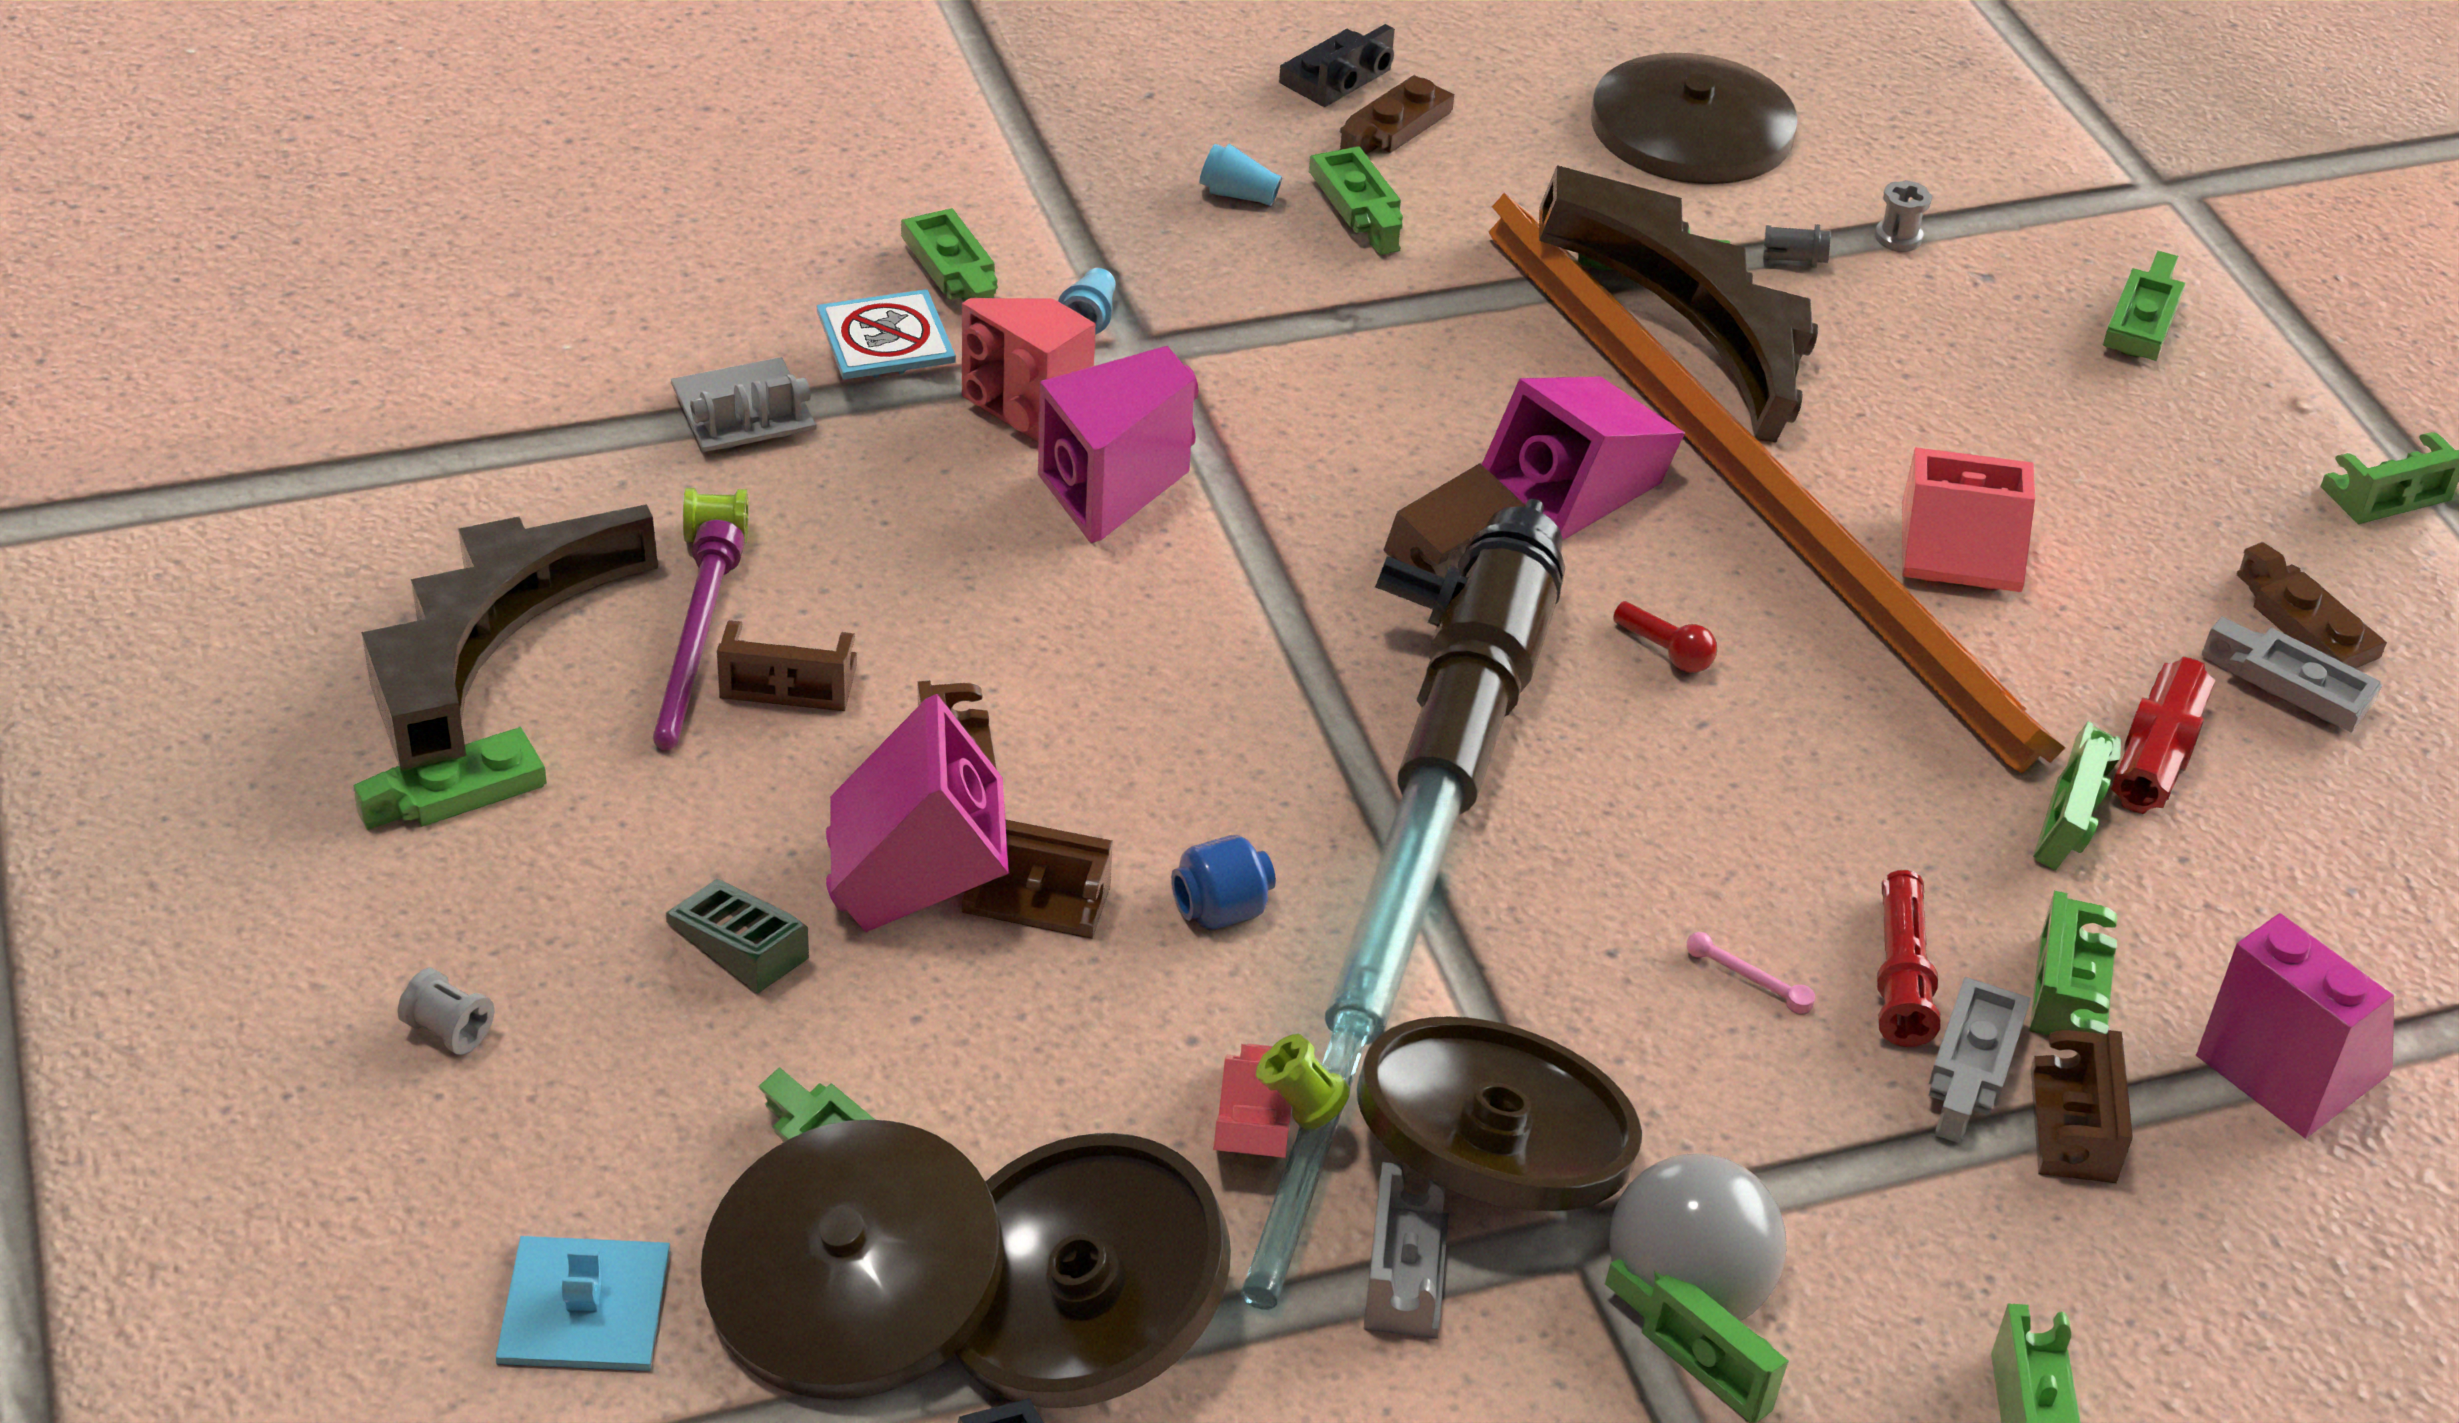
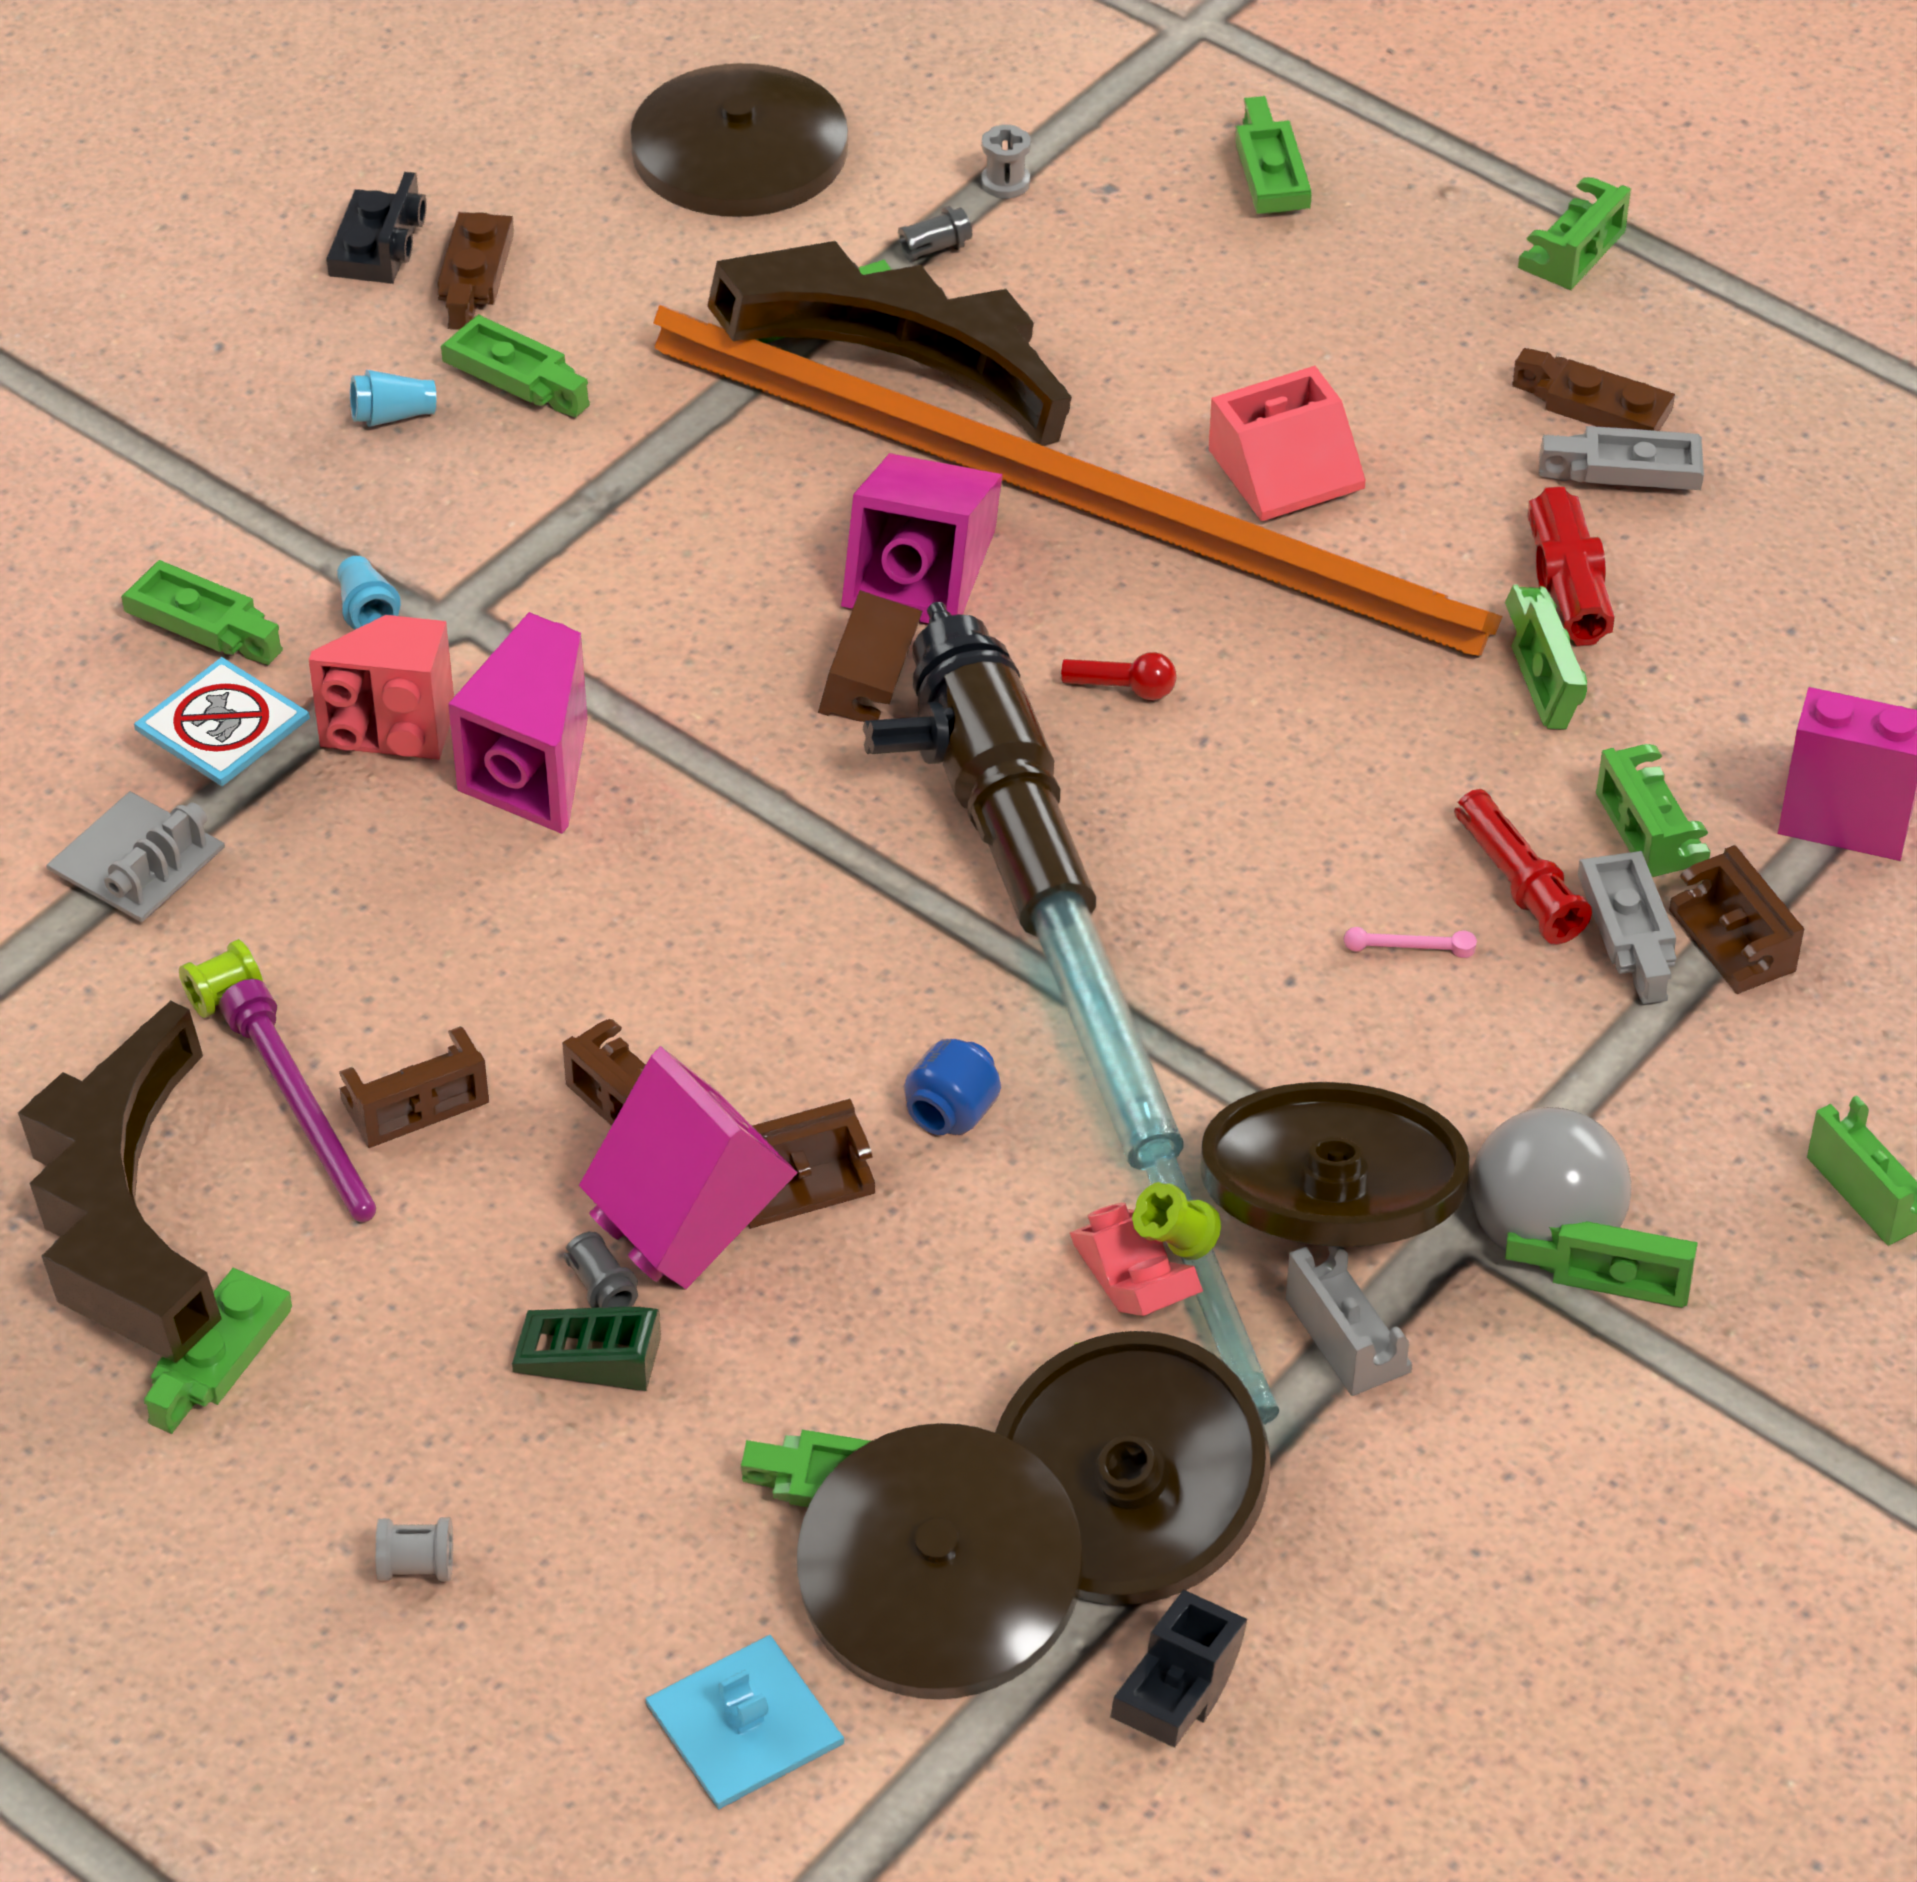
camera: 30 degrees left, 5 degrees up
(798, 881) = (600, 1273): none -> dark grey pin

